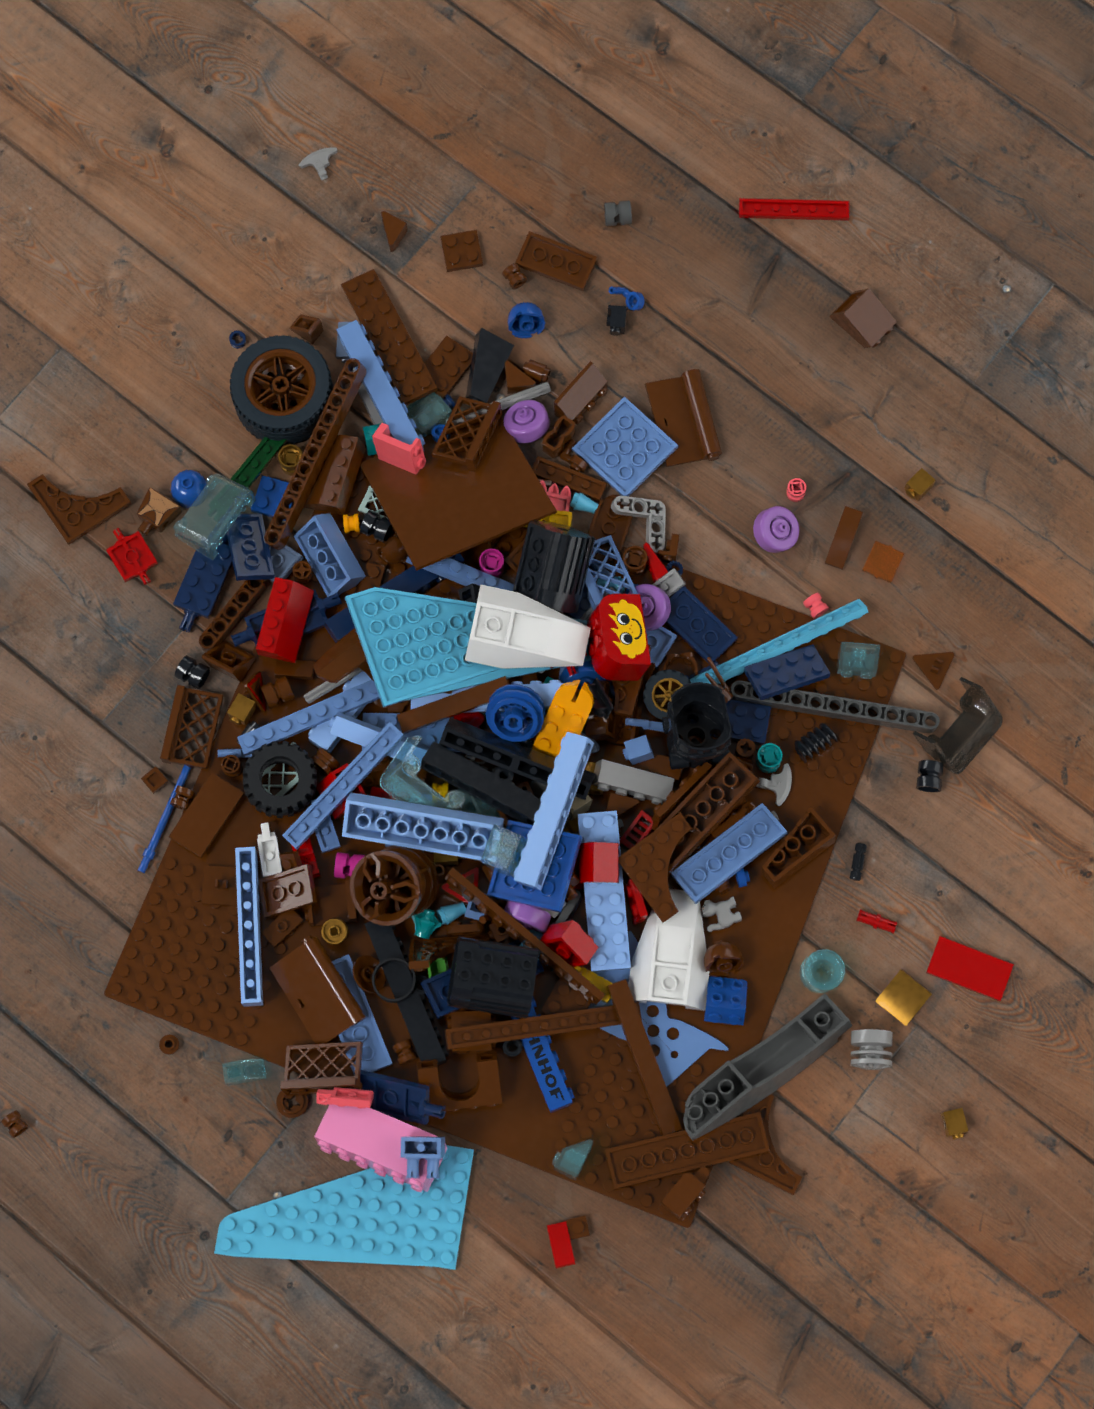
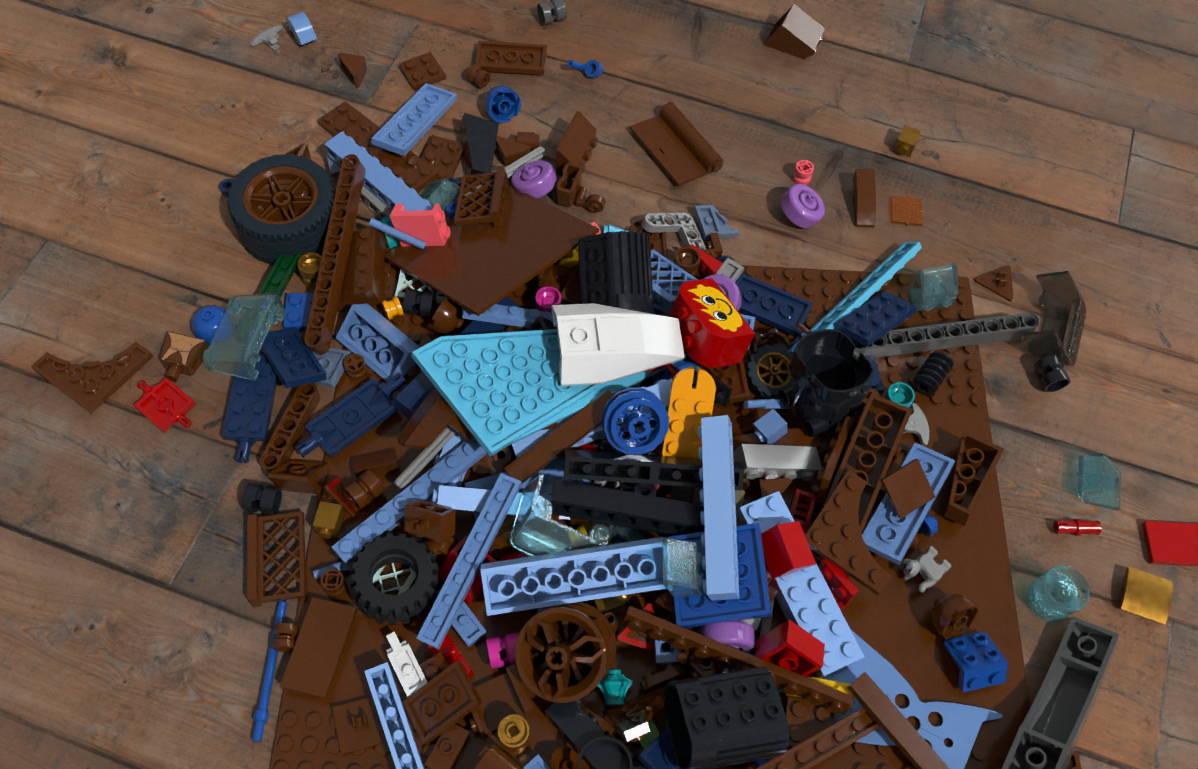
camera: 25 degrees left, 15 degrees down
(154, 780) = (247, 628): reddish brown plate -> none
(284, 620) = (350, 413): red slope -> none
(320, 742) = (429, 520): none -> reddish brown brick
(353, 165) = (301, 28): none -> medium blue brick
(377, 452) = (397, 233): none -> medium blue bar
(434, 316) = (414, 119): none -> medium blue plate
(449, 913) = (637, 665): medium azure cone -> none
(565, 476) = (600, 216): reddish brown plate -> none
(616, 319) = (583, 85): black brick -> none
(625, 447) = (634, 178): medium blue plate -> none
(671, 958) = (899, 636): white wedge -> none
(683, 519) = (712, 221): none -> sand blue wing
(728, 843) = (908, 488): none -> reddish brown piece
(815, 605) = (868, 259): coral wheel -> none
(858, 861) = (1027, 475): black axle -> none
(871, 1049) = (1151, 657): light grey wheel -> none
(917, 889) = (1098, 481): none -> clear light blue slope

